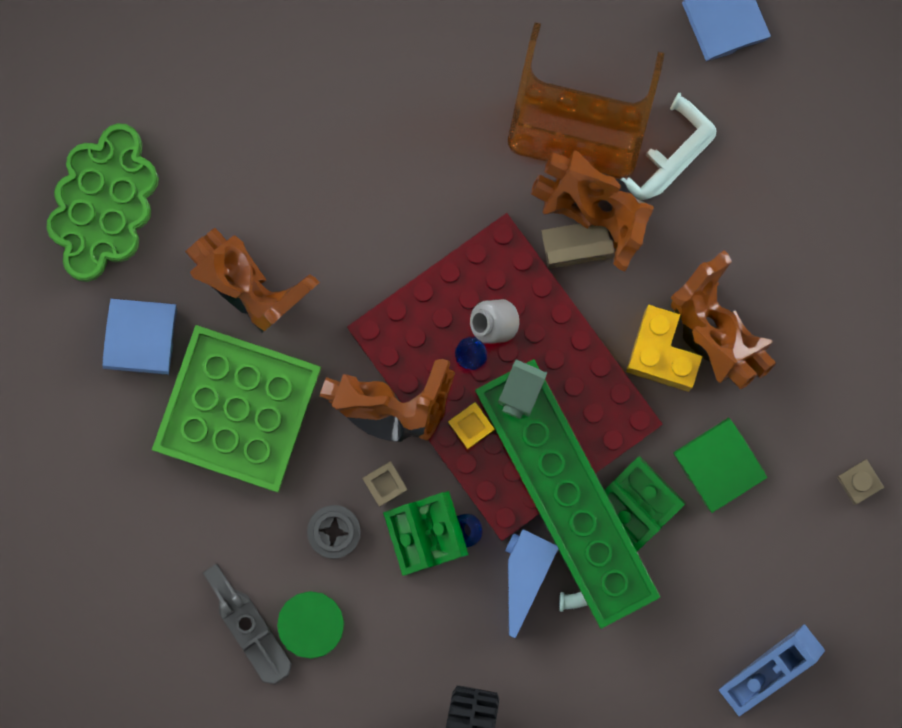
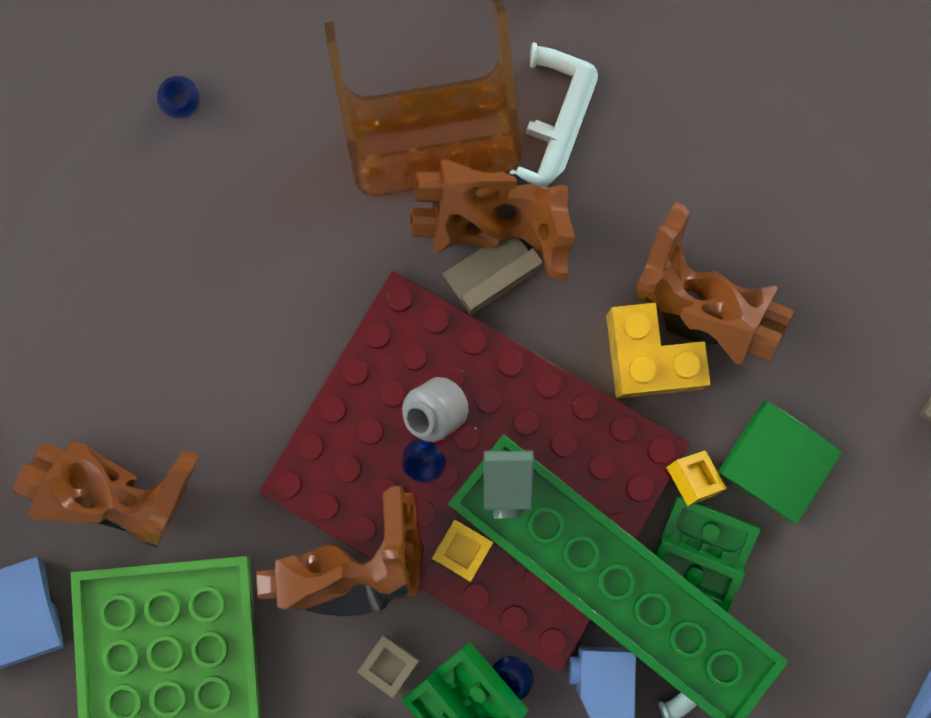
camera: 25 degrees left, 0 degrees up
(404, 14) = (173, 86): none -> clear blue plate
(656, 449) = (696, 477): none -> yellow plate

